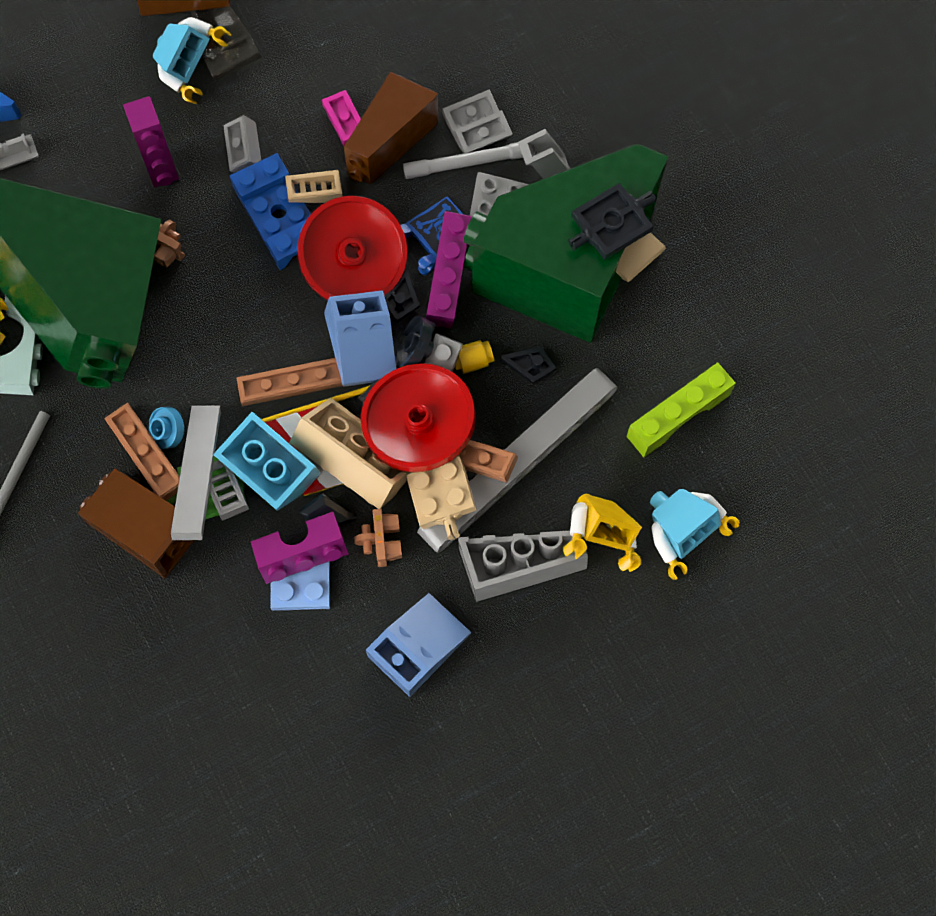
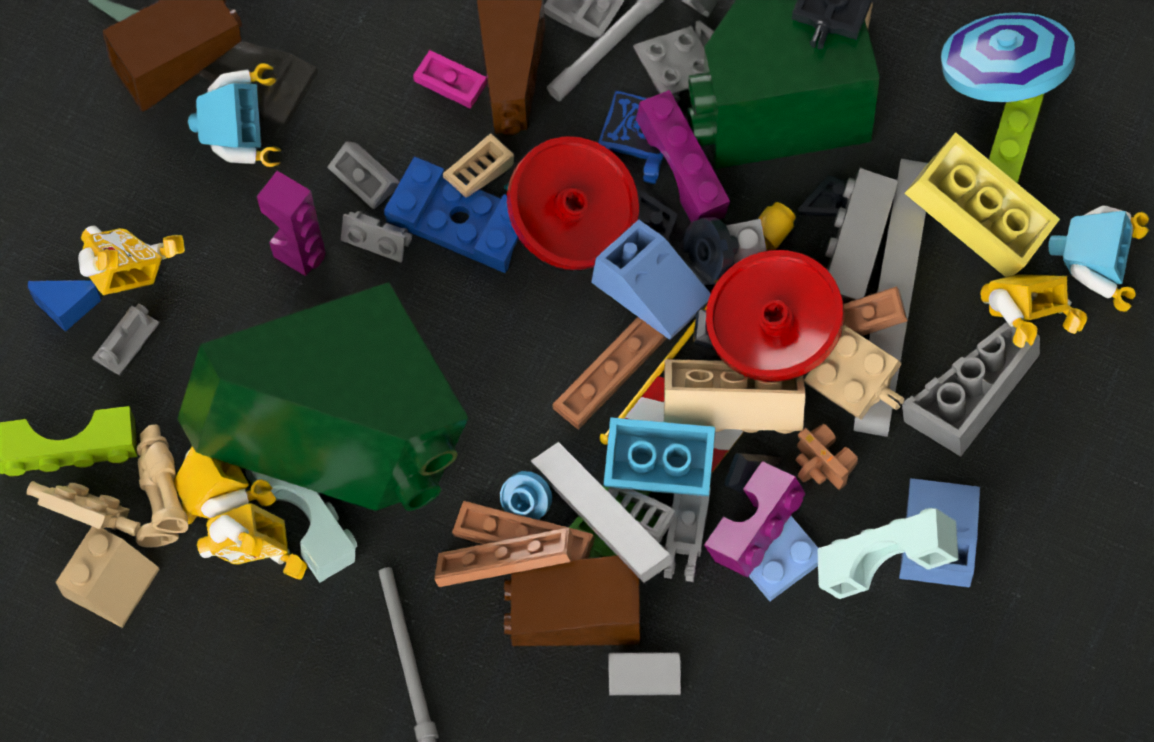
camera: 30 degrees left, 5 degrees down
(41, 98) = (121, 261): none -> torso
(116, 458) = (504, 557): none -> nougat tile
(148, 601) = (644, 674): none -> light grey slope
(209, 180) = (367, 234): none -> light grey hinge
(250, 526) = (686, 531): none -> light grey hinge
(382, 643) = (850, 563): none -> light aqua arch
(524, 402) = (859, 232): none -> light grey brick
(622, 437) = (982, 206): none -> light yellow slope
(725, 346) = (1008, 57): none -> dish

